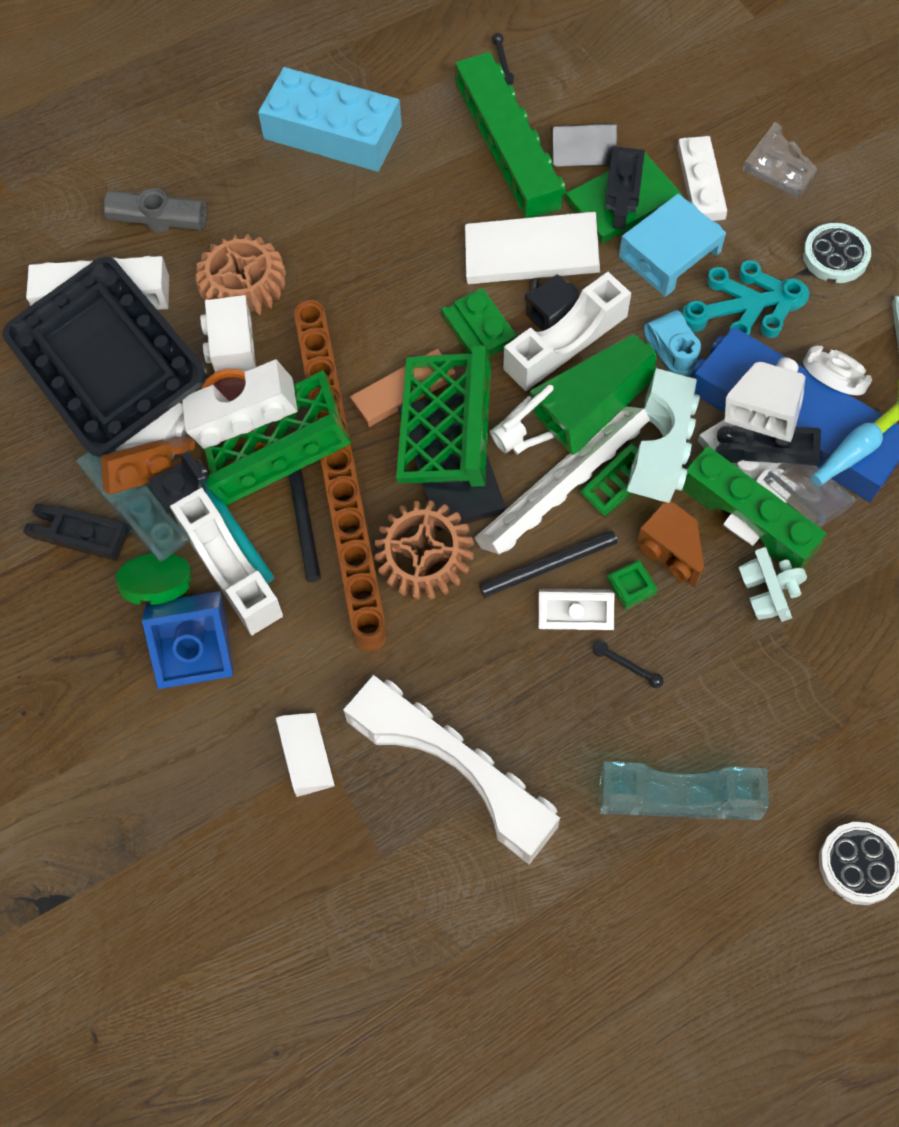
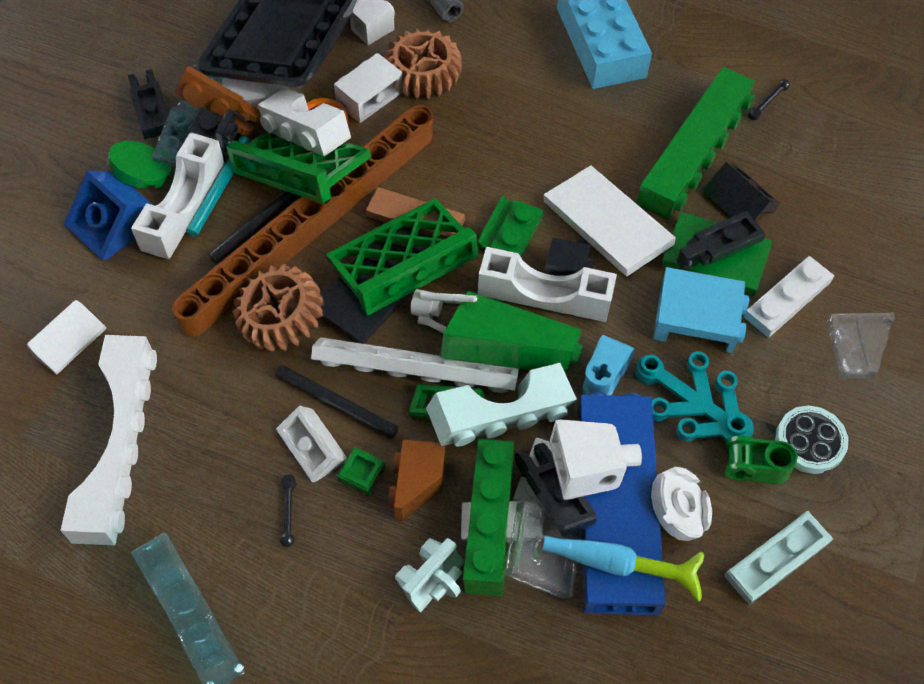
camera: 50 degrees right, 5 degrees down
(831, 298) = (755, 460): none -> green piece

